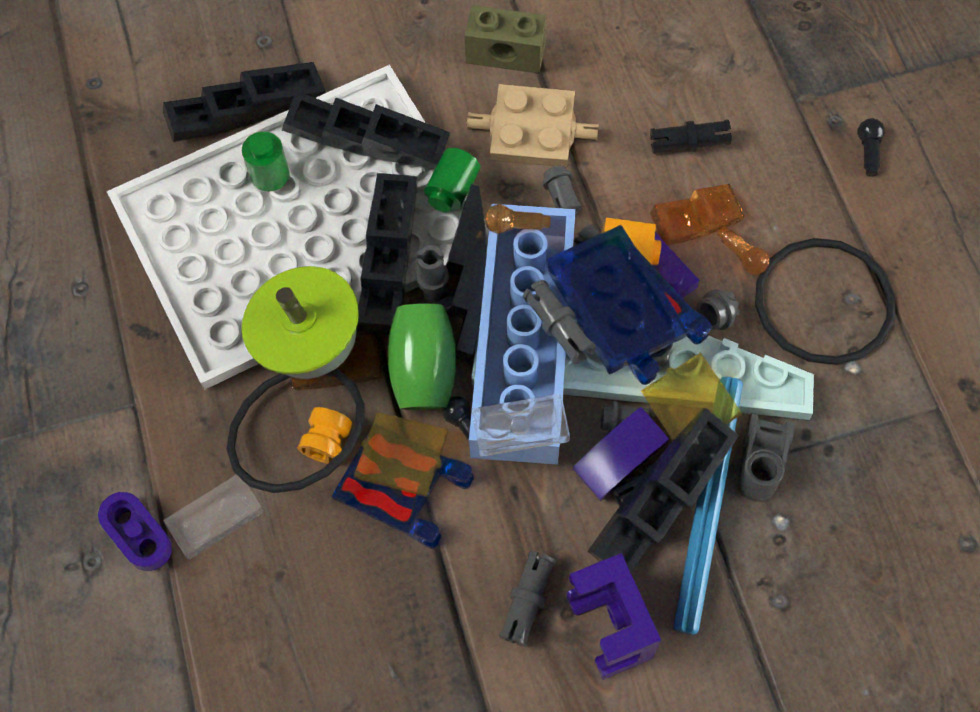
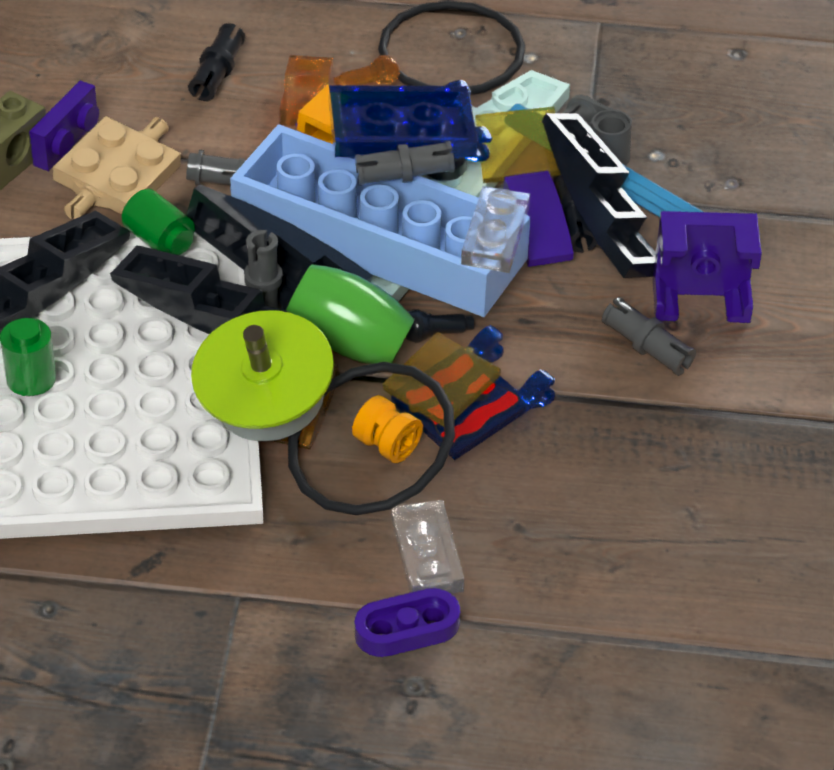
camera: 70 degrees left, 20 degrees down
(501, 219) = (261, 166): clear orange piece -> none
(552, 69) = (64, 125): none -> dark purple plate

